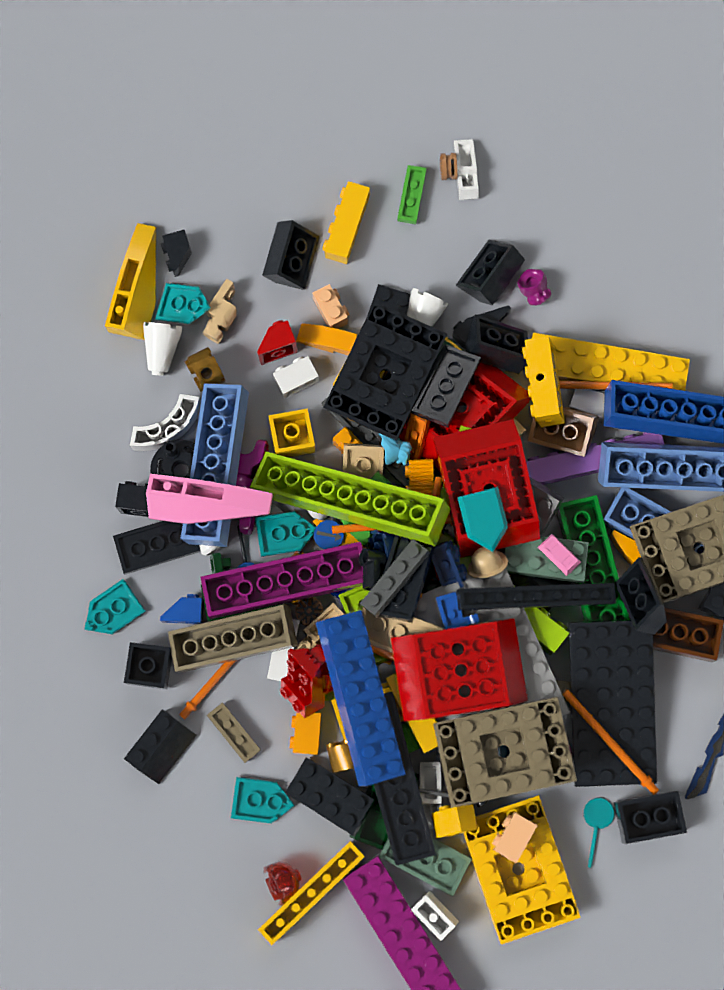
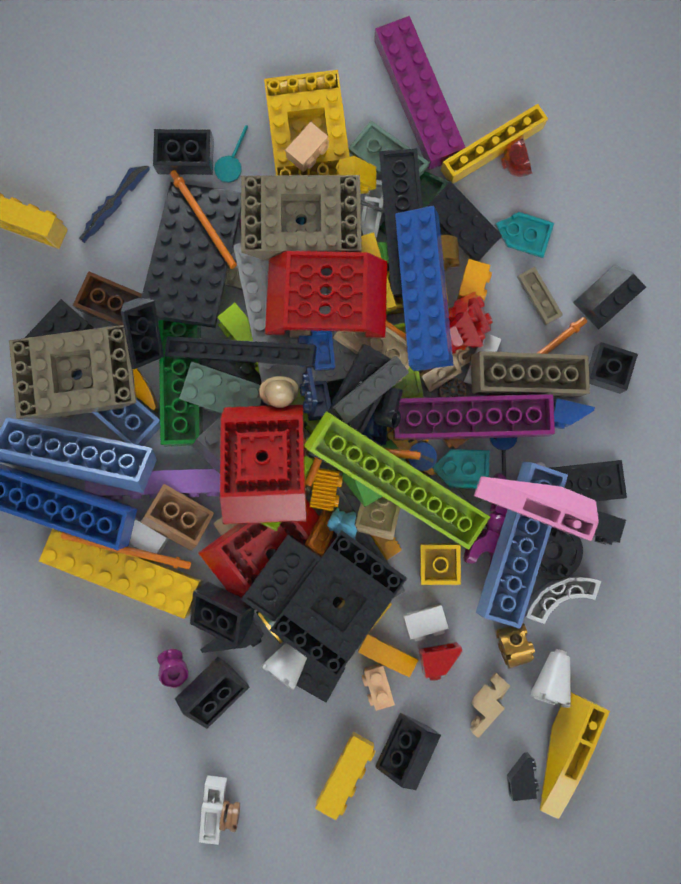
camera: 170 degrees left, 5 degrees up
(113, 609) = (634, 429): teal tile -> none
(181, 304) = (526, 720): teal tile -> none
(218, 563) = (530, 451): dark green tile -> none
(411, 194) = (273, 793): bright green plate -> none
(435, 915) = (389, 105): white brick -> none
(484, 517) = (273, 430): teal tile -> none
(544, 381) = (182, 575): yellow brick -> none
(559, 554) = (209, 390): bright pink tile -> none

